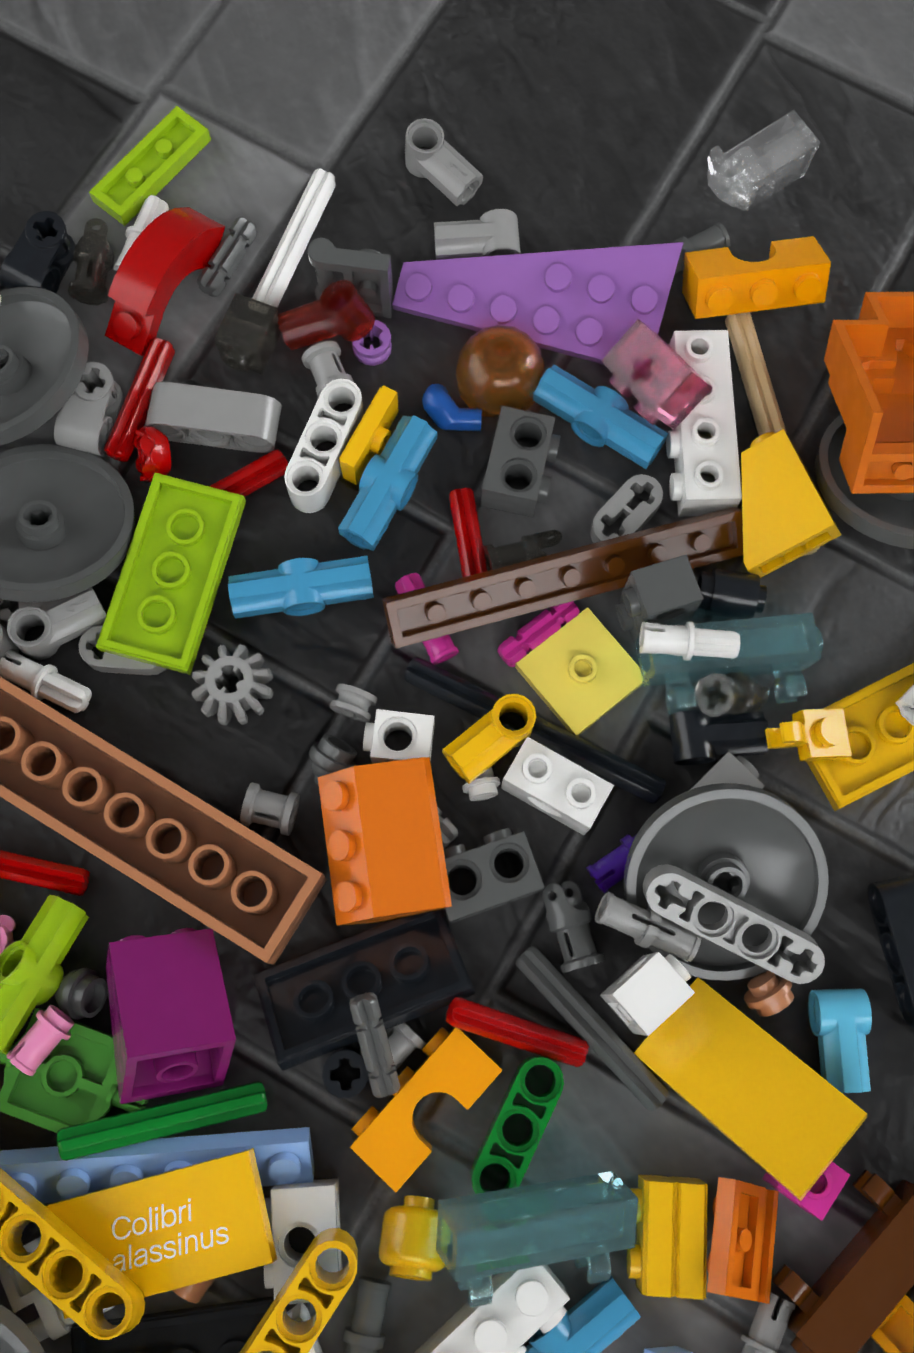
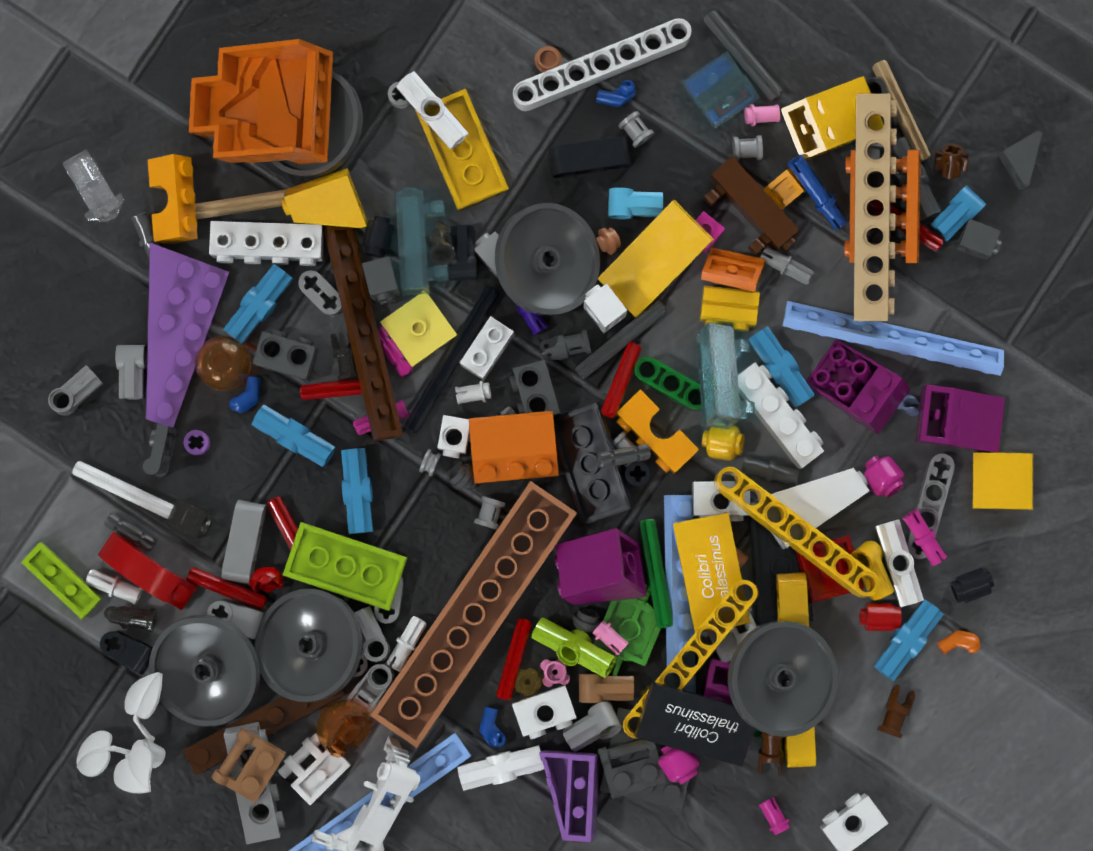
camera: 80 degrees left, 10 degrees up
(216, 681) = (410, 540): light grey gear -> none
(323, 426) = (254, 470): white beam -> none
(324, 364) = (216, 470): light grey bush -> none
(337, 312) = (184, 470): clear red piece -> none
(370, 435) = (262, 444): yellow plate -> none
(488, 739) = (459, 385): yellow piece -> none
(647, 927) = (569, 304): light grey pin -> none
(655, 375) = (241, 269): clear pink brick -> none
(688, 641) = (411, 266): white axle -> none
(736, 920) = (573, 259): light grey beam -> none
(816, 734) = (466, 198): yellow plate -> none

